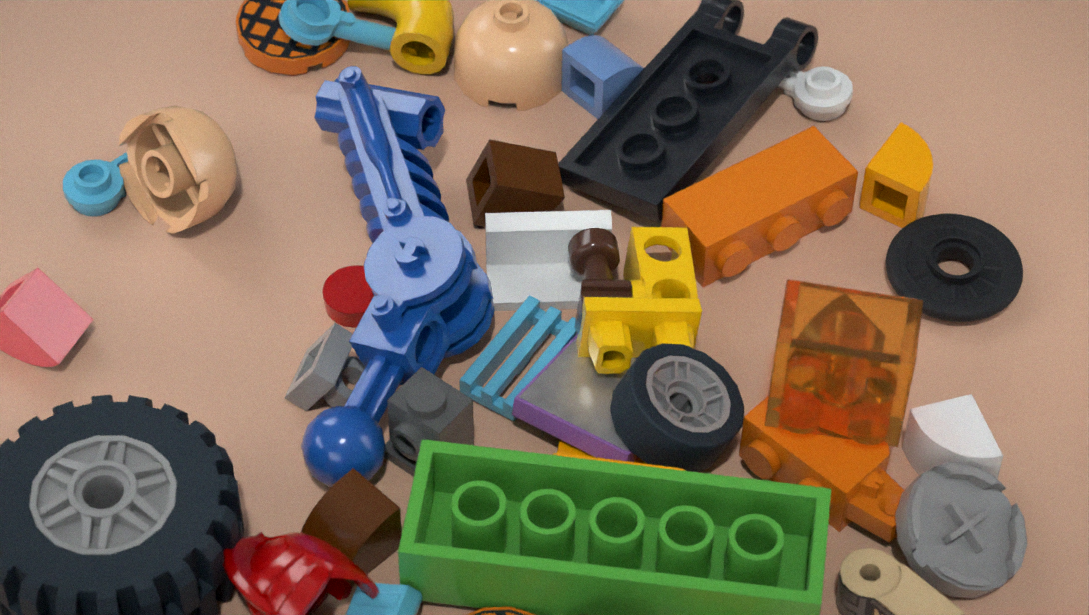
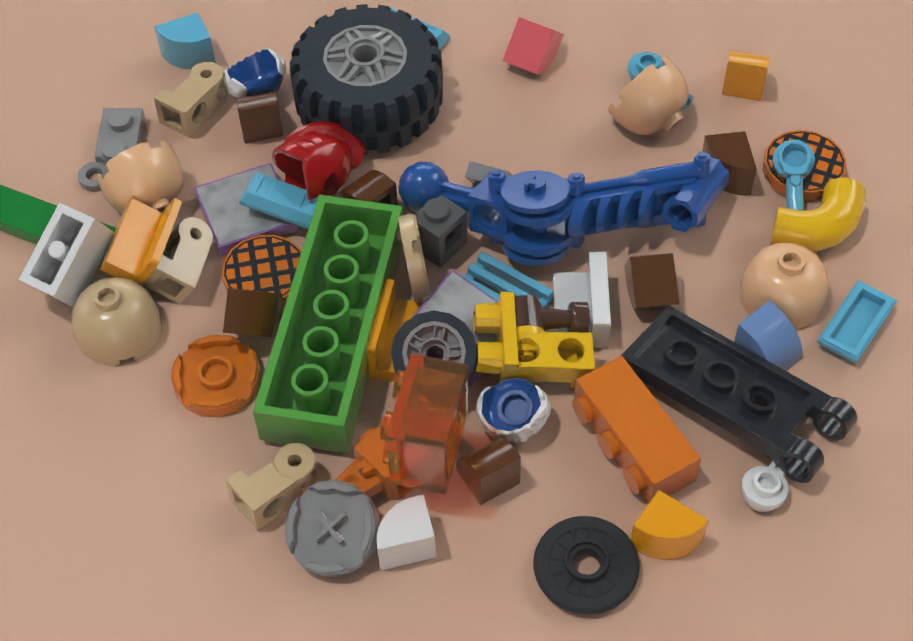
camera: 95 degrees right, 5 degrees up
(122, 68) = (745, 75): none -> light orange brick
(292, 91) = (735, 156): none -> reddish brown brick
(516, 420) = (414, 256): none -> tan tile
(742, 328) = (513, 410): none -> blue hair

